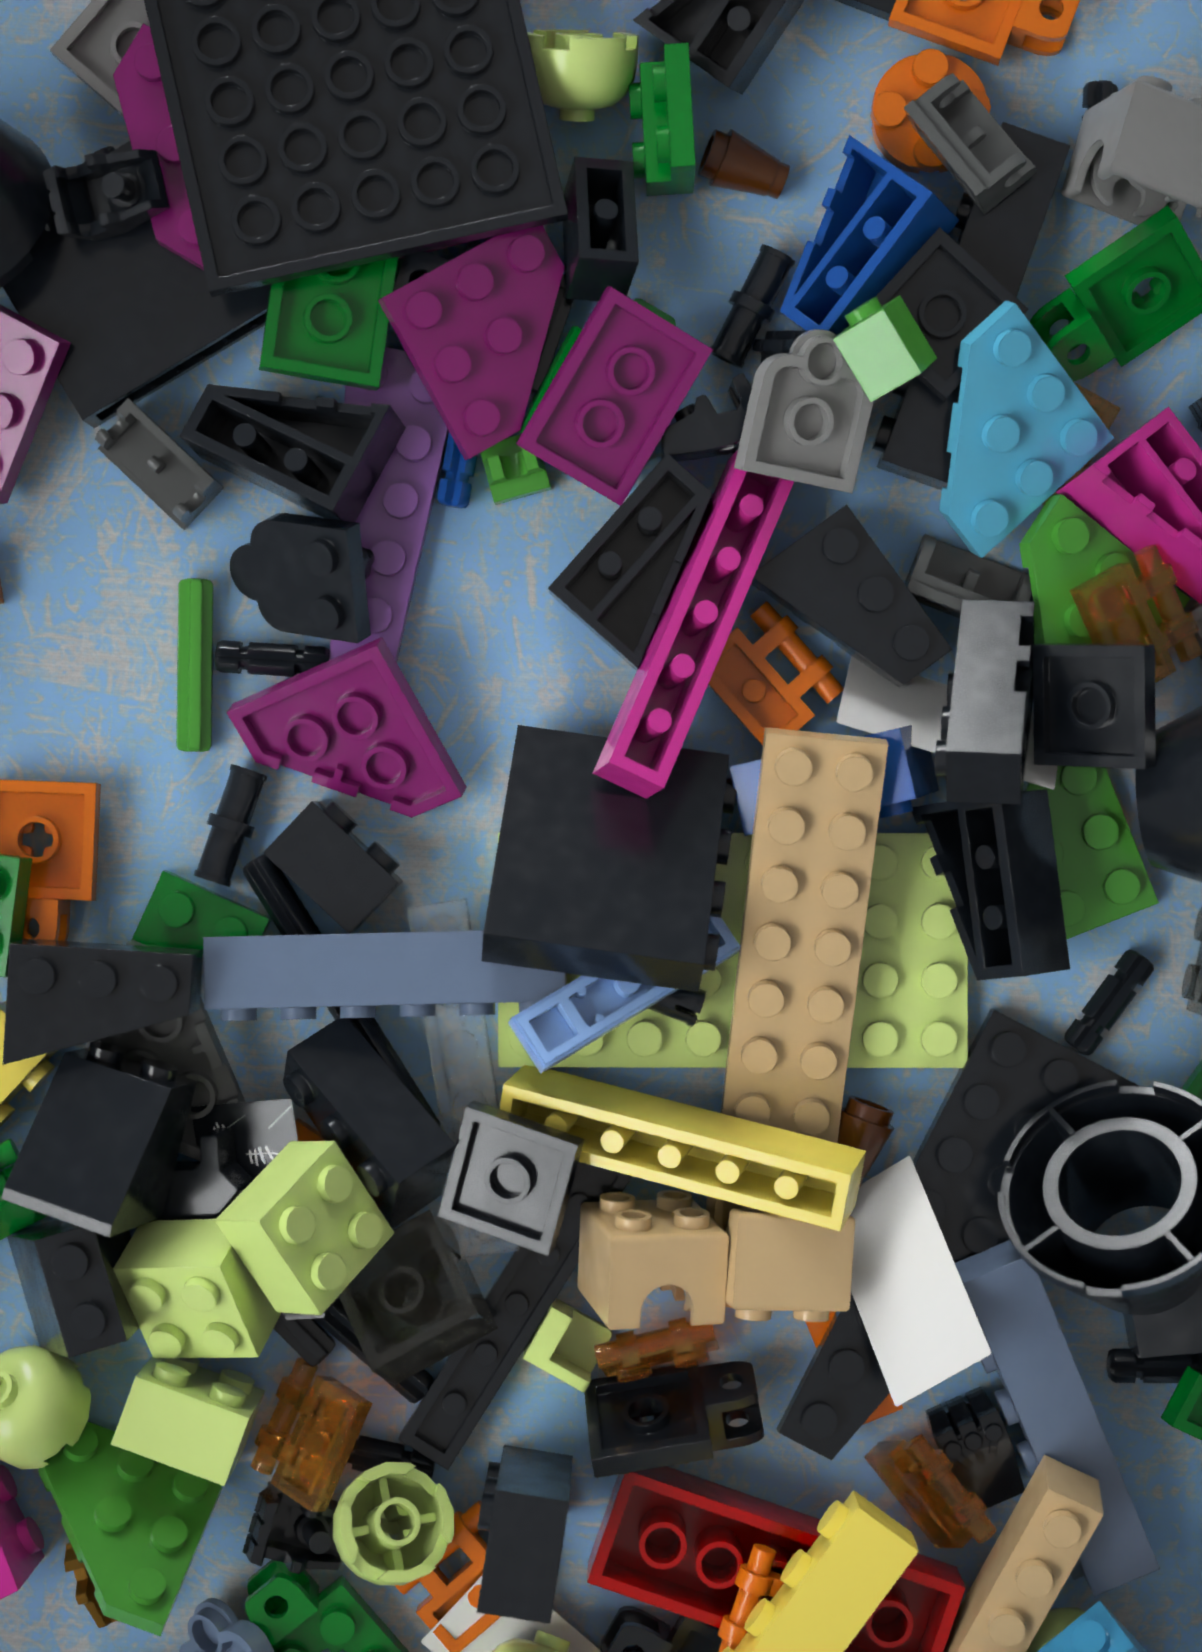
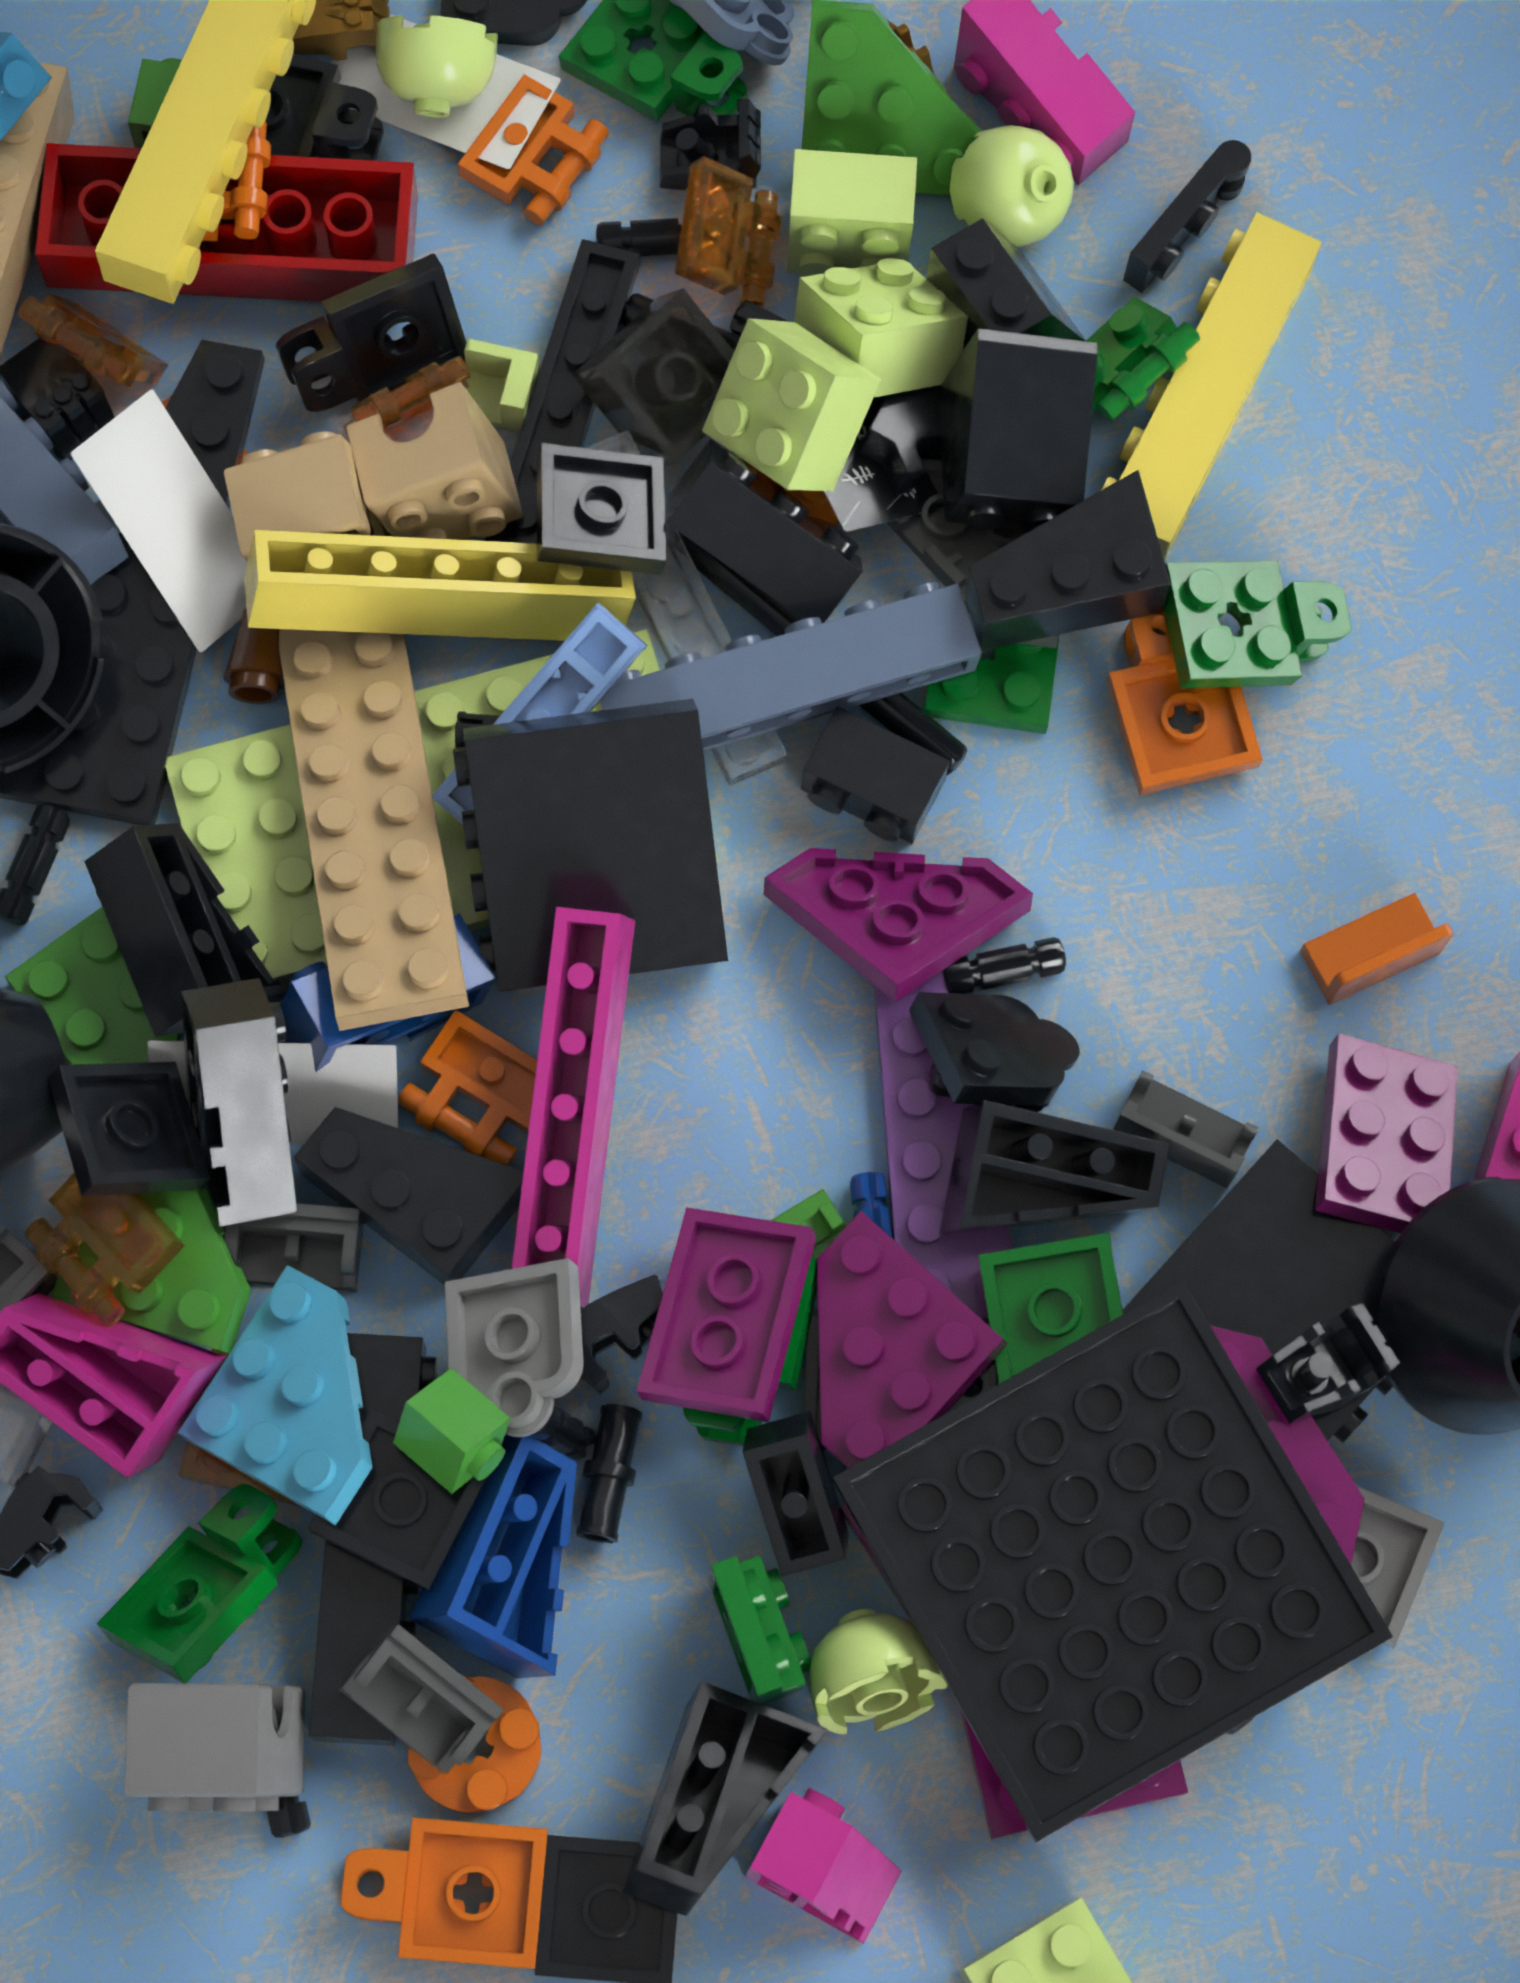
camera: 160 degrees right, 15 degrees down
(194, 665) = (1082, 938): bright green axle -> none
(230, 825) = (993, 788): black pin -> none
(393, 1524) = (600, 182): yellowish green cylinder -> none
(526, 1523) = (490, 190): black wedge -> none
(634, 559) = (656, 1159): black wedge -> none
(742, 166) = (664, 1621): reddish brown cone -> none

